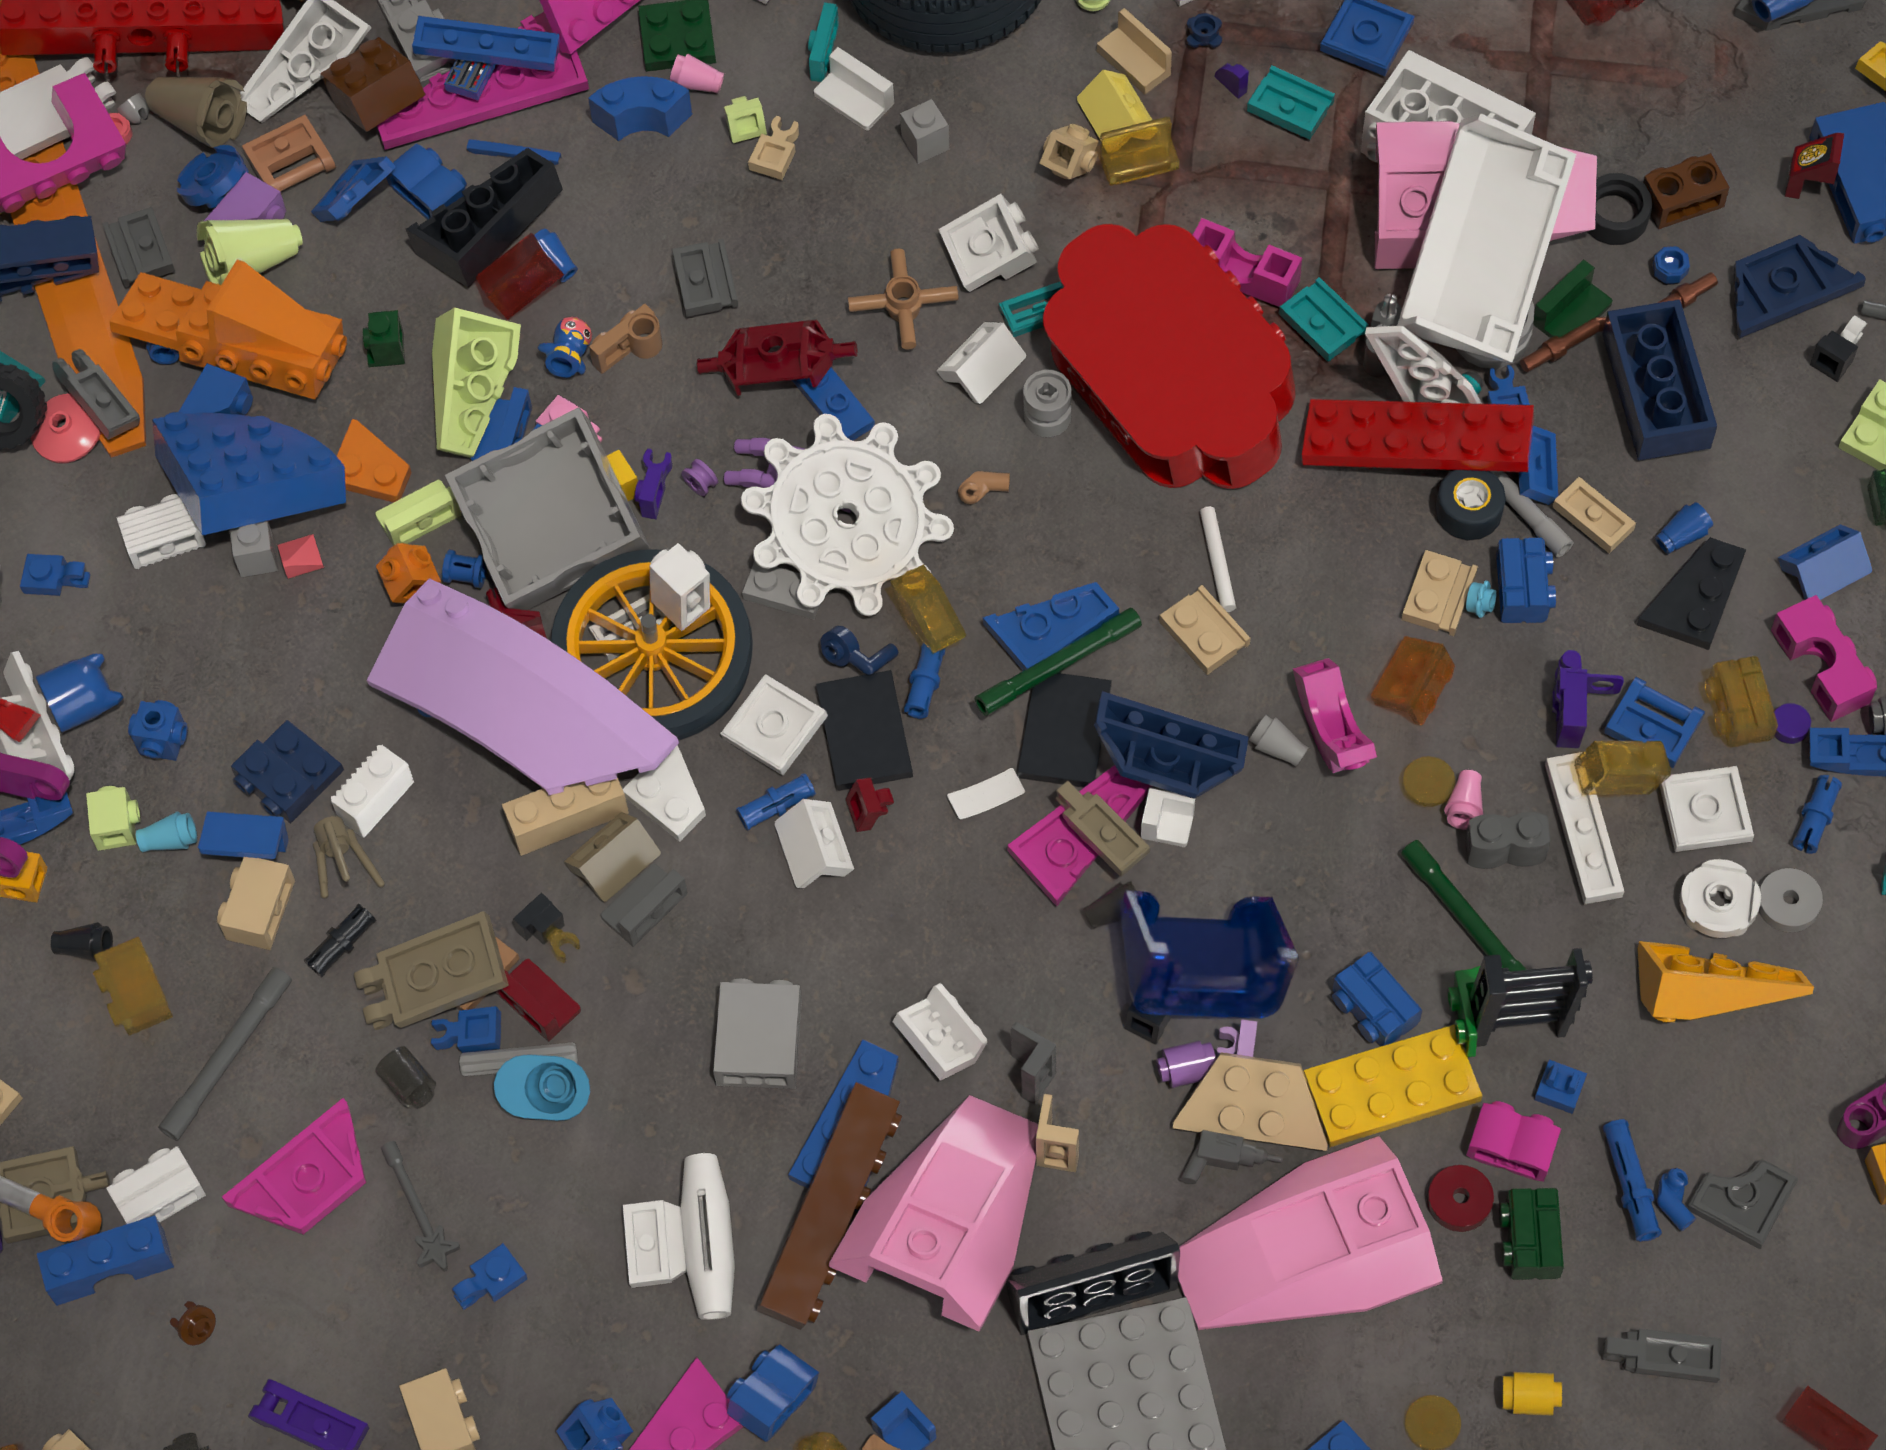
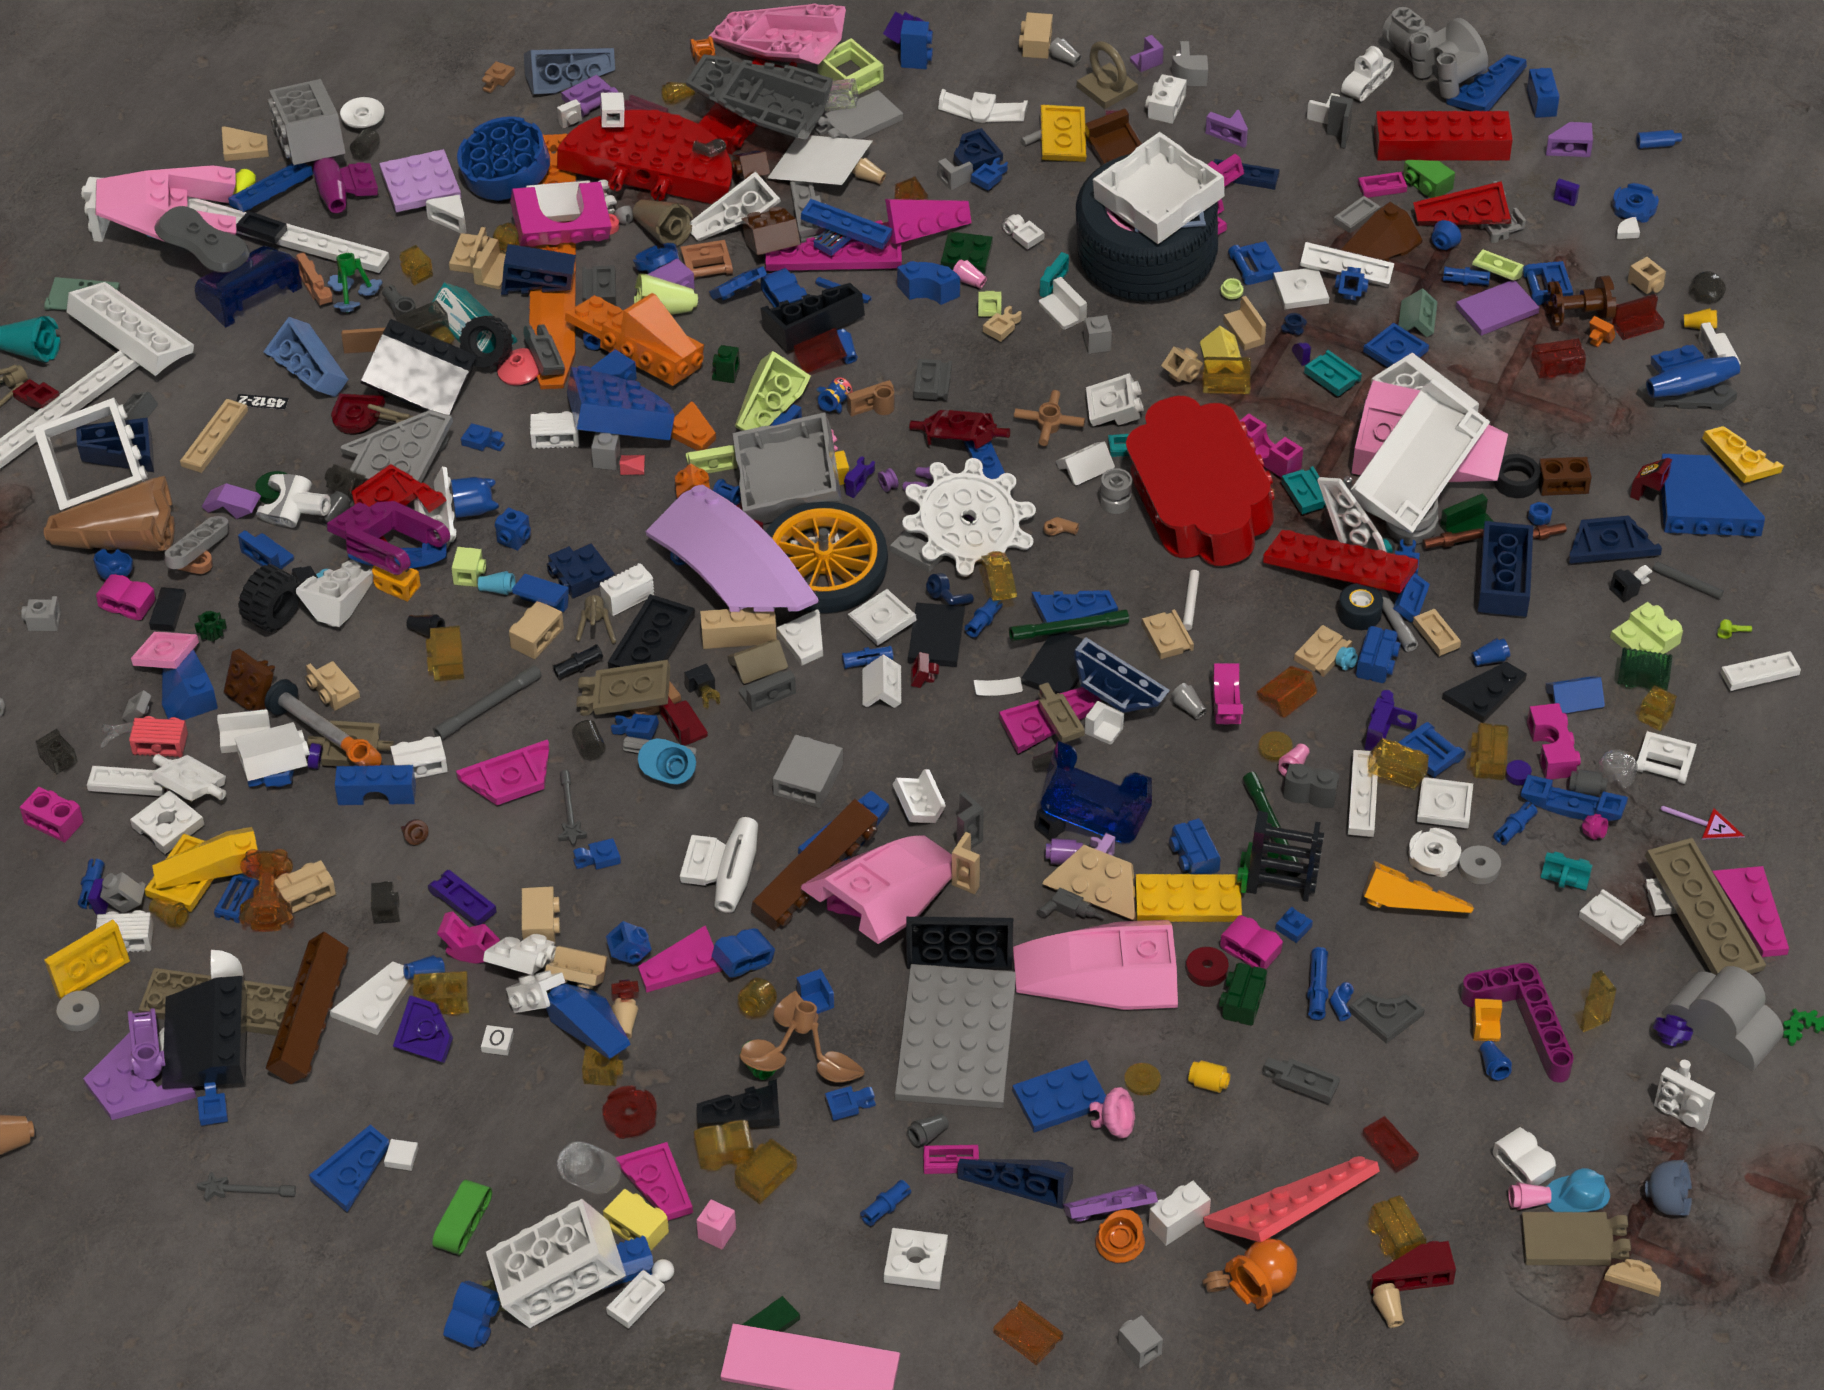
camera: 15 degrees right, 15 degrees down
(437, 861) = (652, 632): none -> black plate
(680, 585) = (849, 519): white brick -> none

